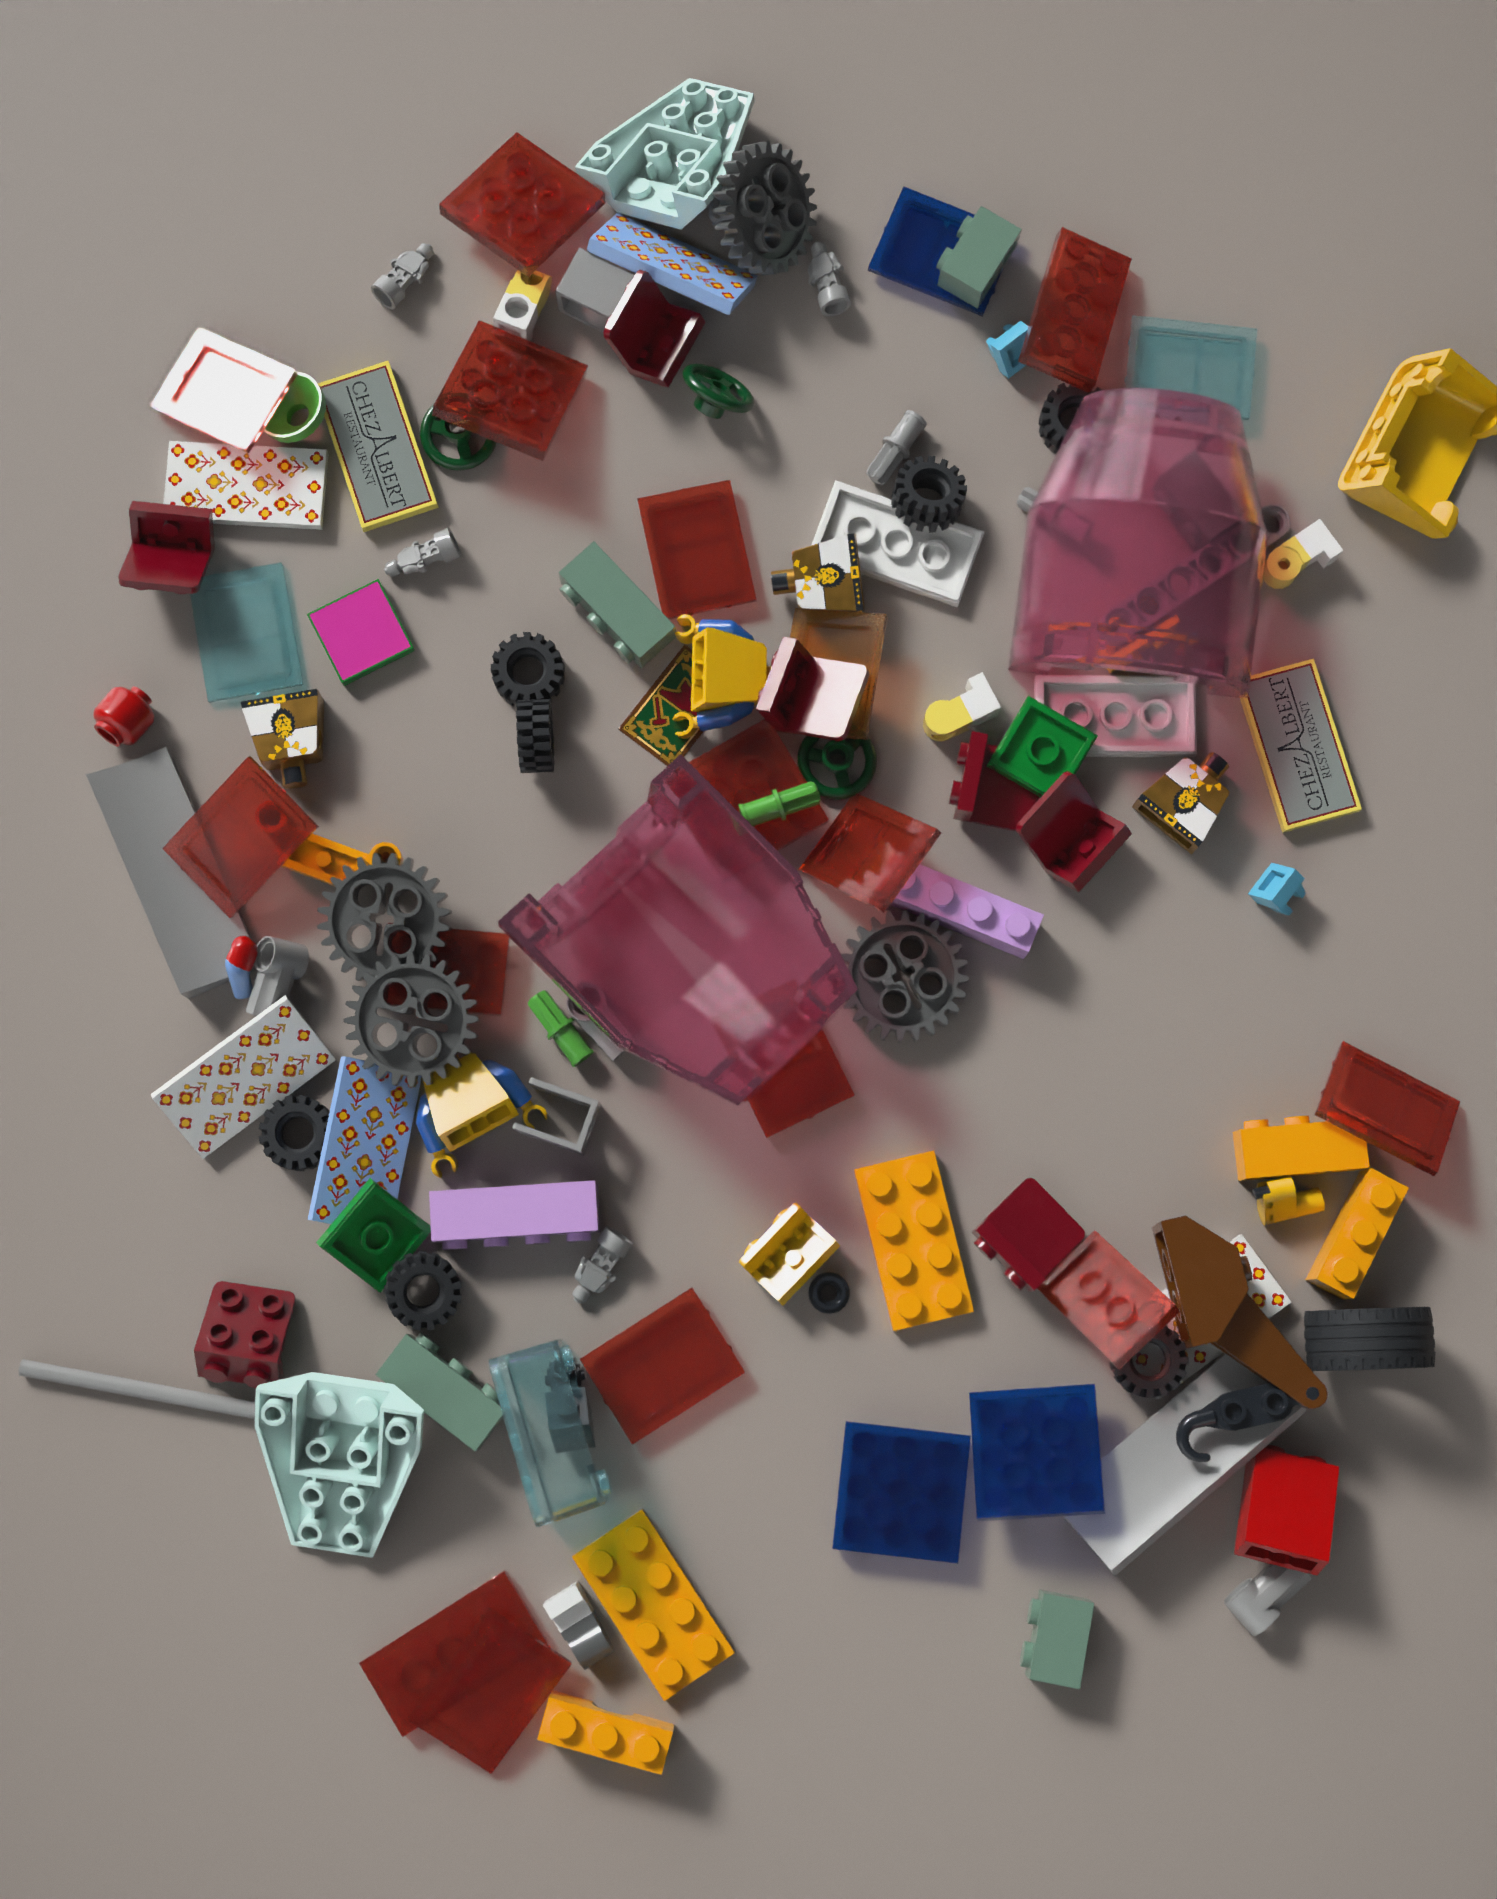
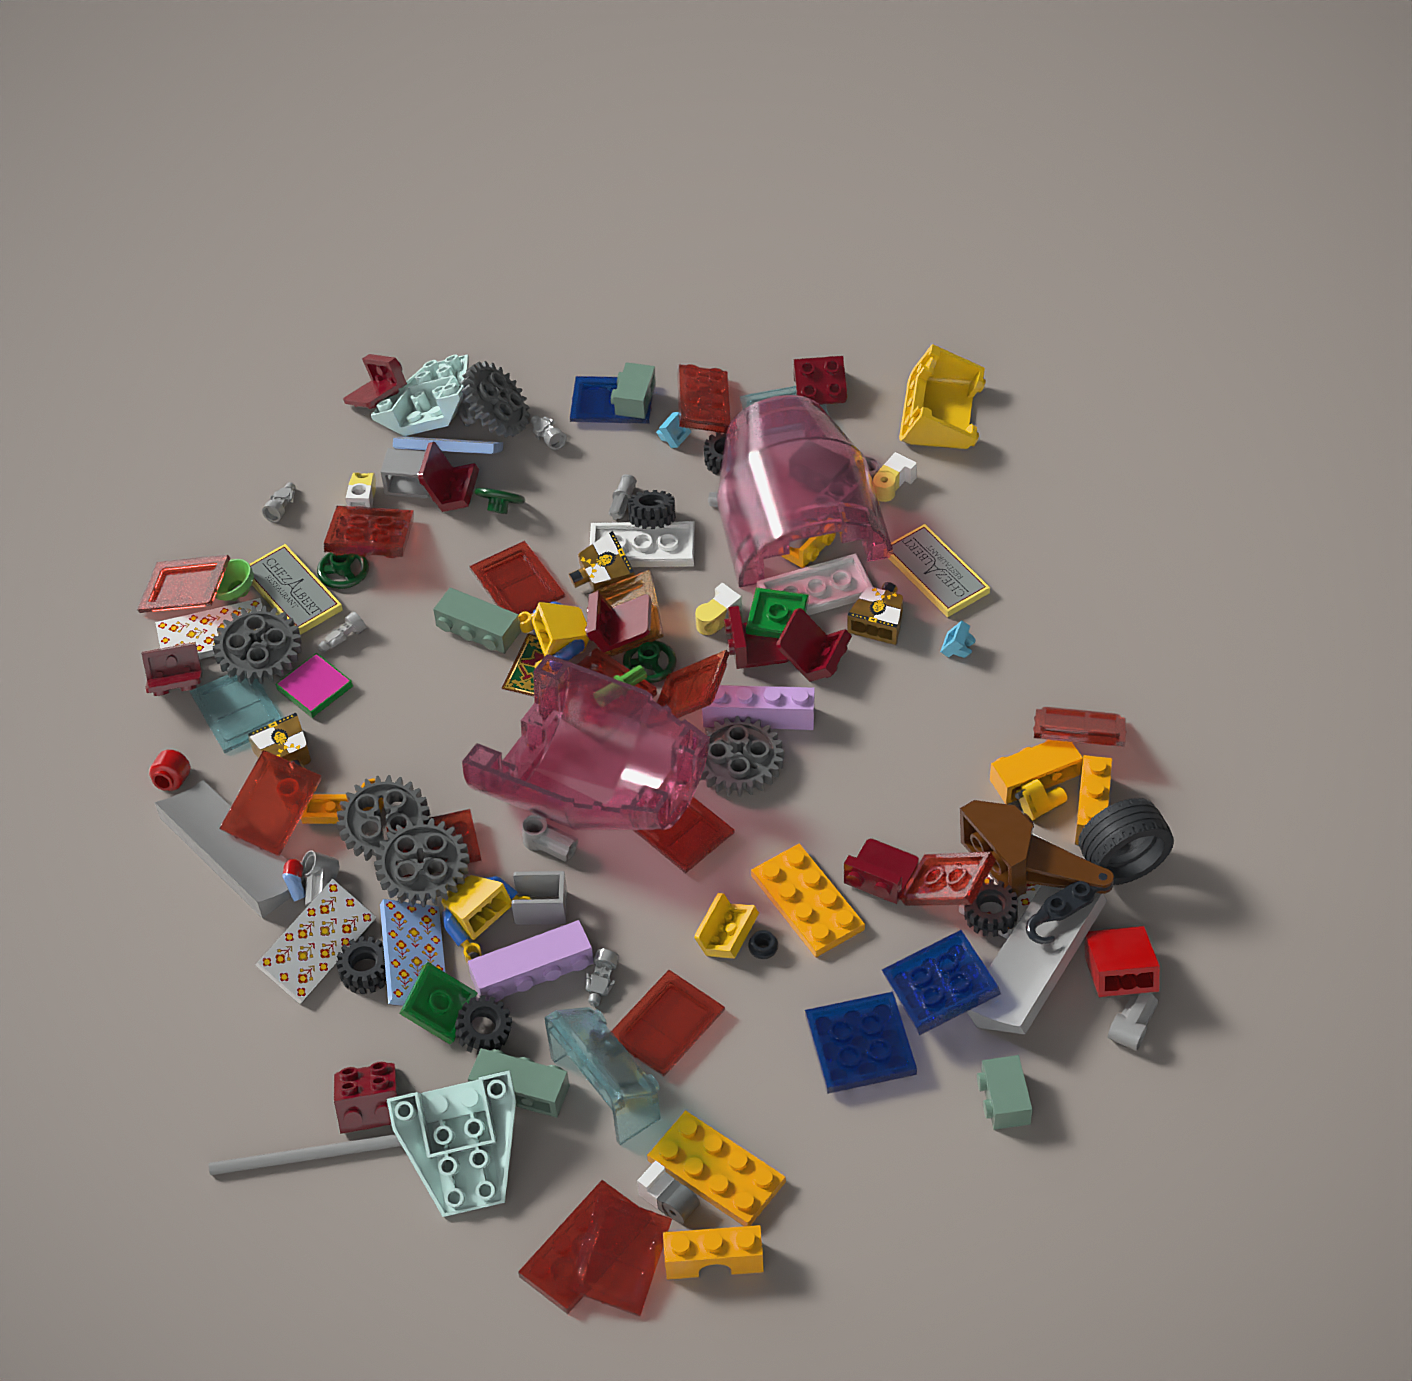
camera: 15 degrees left, 30 degrees down
(276, 513) = (257, 645): none -> dark grey gear
(522, 204) = (344, 443): clear red plate -> none
(527, 647) = (430, 659): black tyre -> none
(535, 736) = (449, 696): black tyre -> none
(560, 1028) = (523, 853): bright green axle -> none
(603, 108) = (385, 381): none -> dark red bracket
(1261, 334) = (821, 379): none -> dark red bracket

